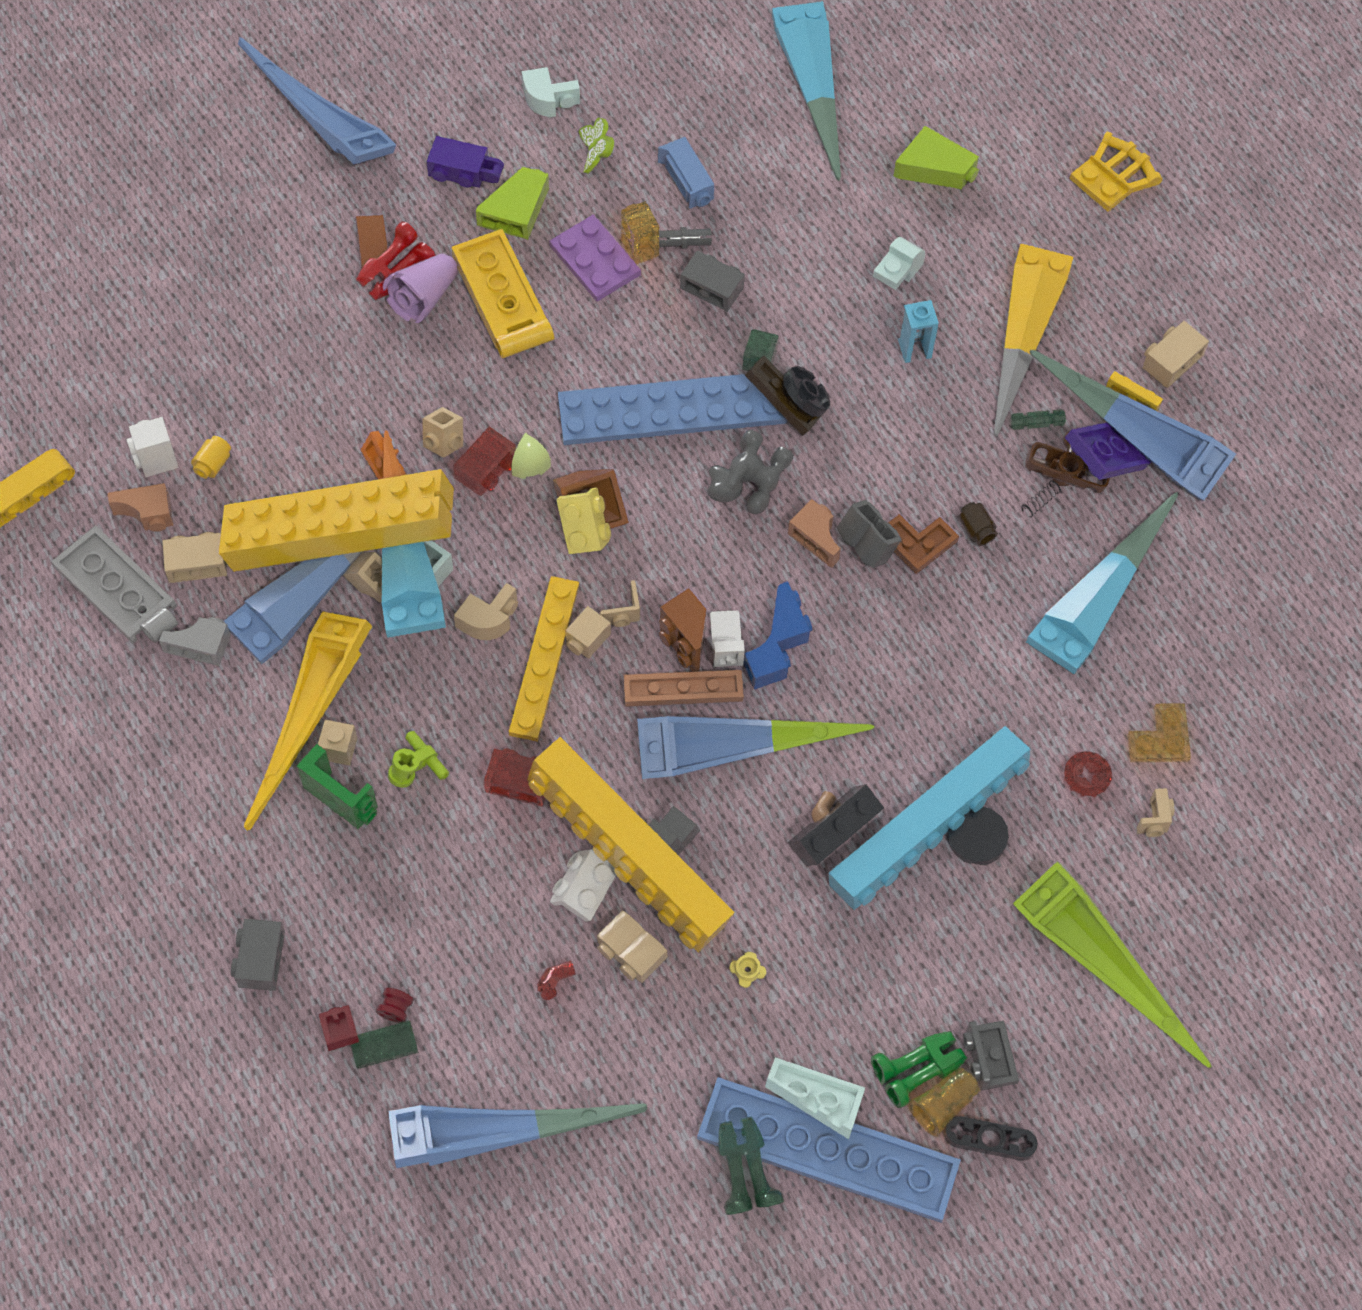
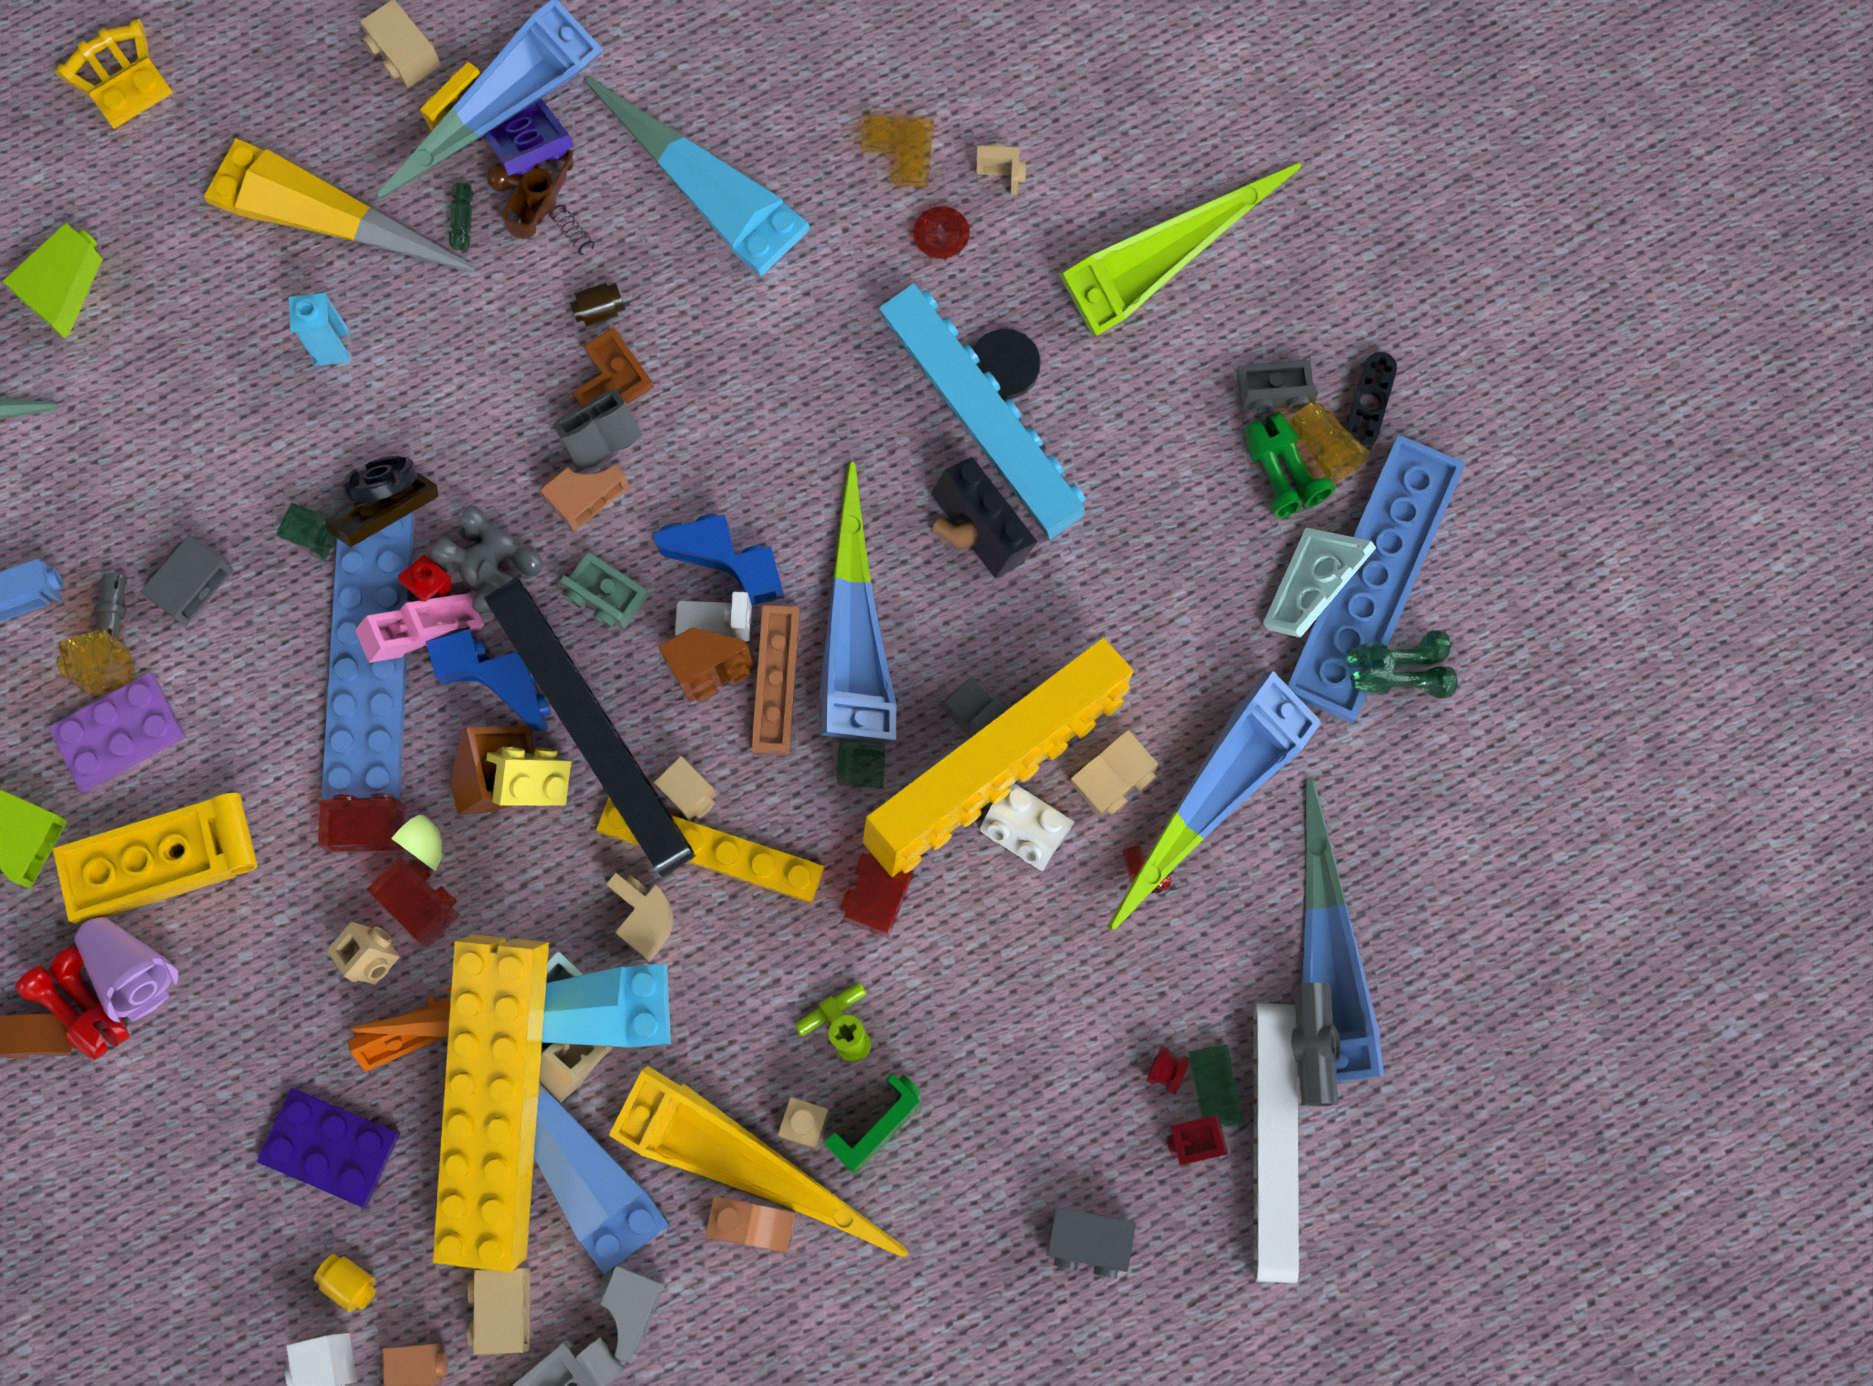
camera: 80 degrees left, 10 degrees up
(262, 713) = (750, 1224): none -> nougat arch
(305, 435) = (328, 1147): none -> dark purple plate
(344, 1090) = (1277, 1144): none -> white beam
(418, 1110) = (1316, 1044): none -> dark grey piece
(539, 416) = (360, 824): none -> clear red brick
(620, 755) = (861, 764): none -> clear green panel
(624, 554) = (590, 727): none -> black beam
(624, 616) = (670, 742): tan bracket -> none
(661, 502) = (461, 659): none -> blue arch
(665, 1052) = (1252, 747): none -> medium blue plate
(692, 431) = (402, 631): none -> bright pink slope
(728, 431) = (426, 580): none -> red bracket
(738, 557) = (605, 591): none -> sand green bracket
(748, 960) = (1154, 633): light yellow plate -> none
(900, 263) = (209, 342): light aqua brick -> none

